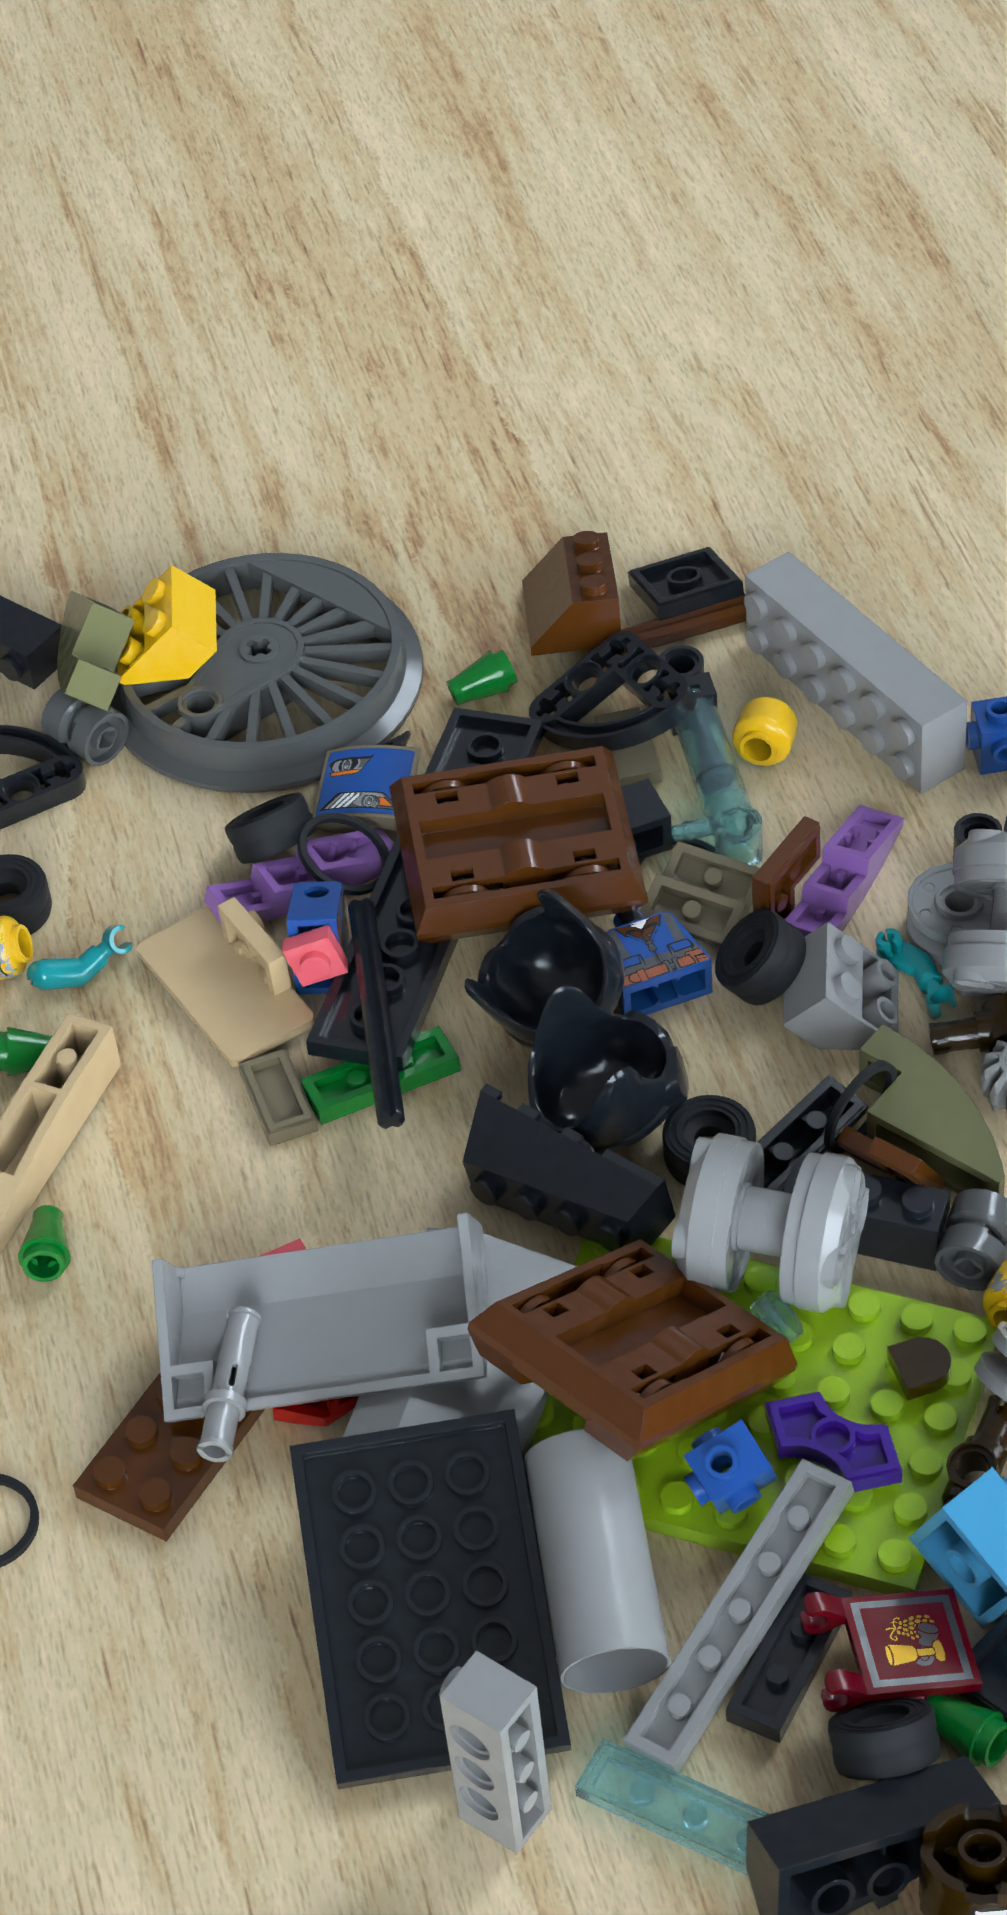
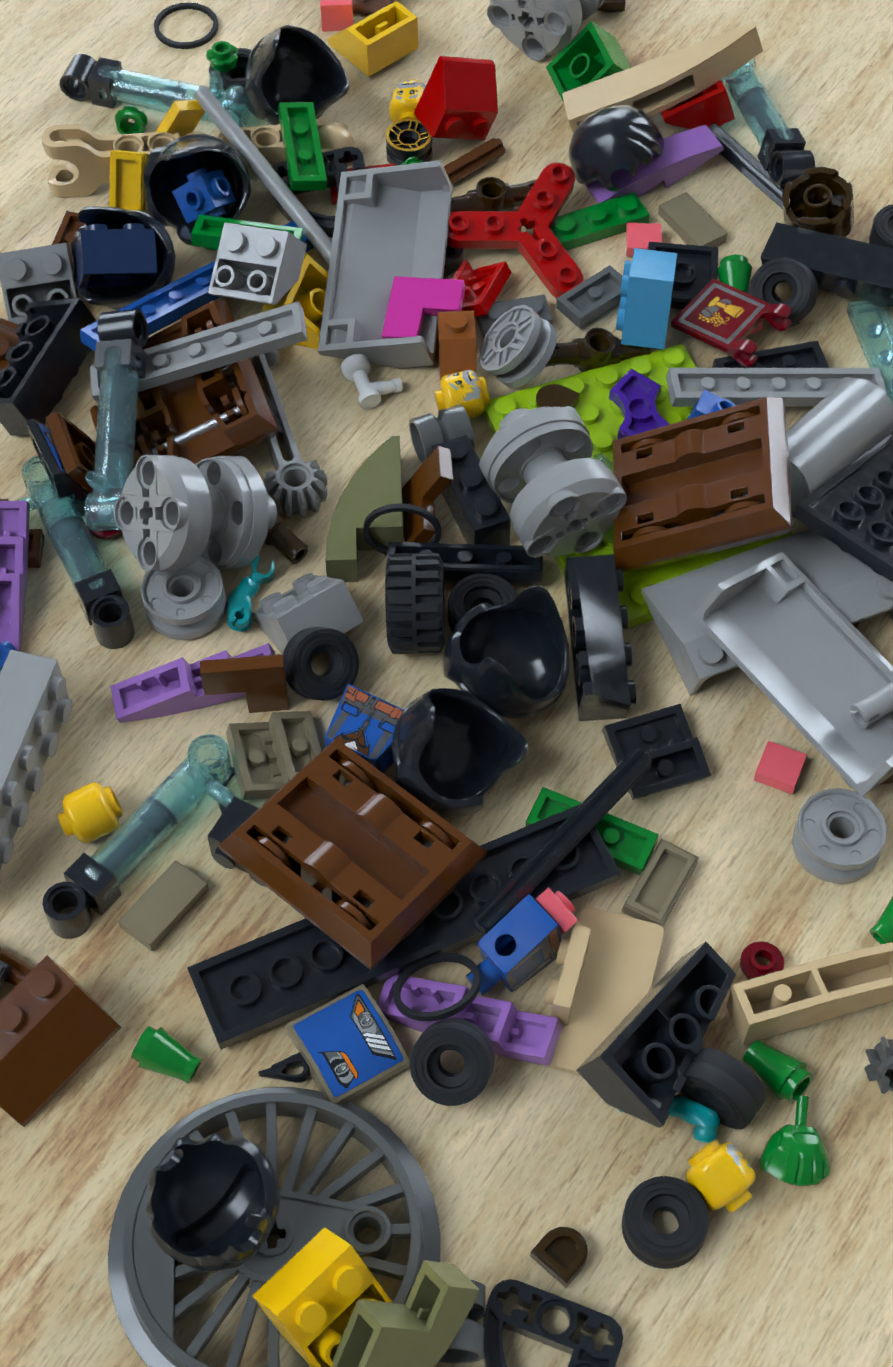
camera: 135 degrees left, 10 degrees up
(46, 963) = (724, 1087): none -> black tyre
(62, 831) = (561, 1254): none -> dark brown tile
(125, 1113) = (751, 968): none -> dark red plate
(135, 960) = (649, 1051): none -> black wedge
(166, 1229) = (833, 857): none -> light grey wheel
(298, 590) = (213, 1202): none -> black piece
(405, 1183) = (668, 741): none -> black slope
(623, 670) = (102, 927): black beam -> none
(750, 1051) = (415, 603): none -> black tyre

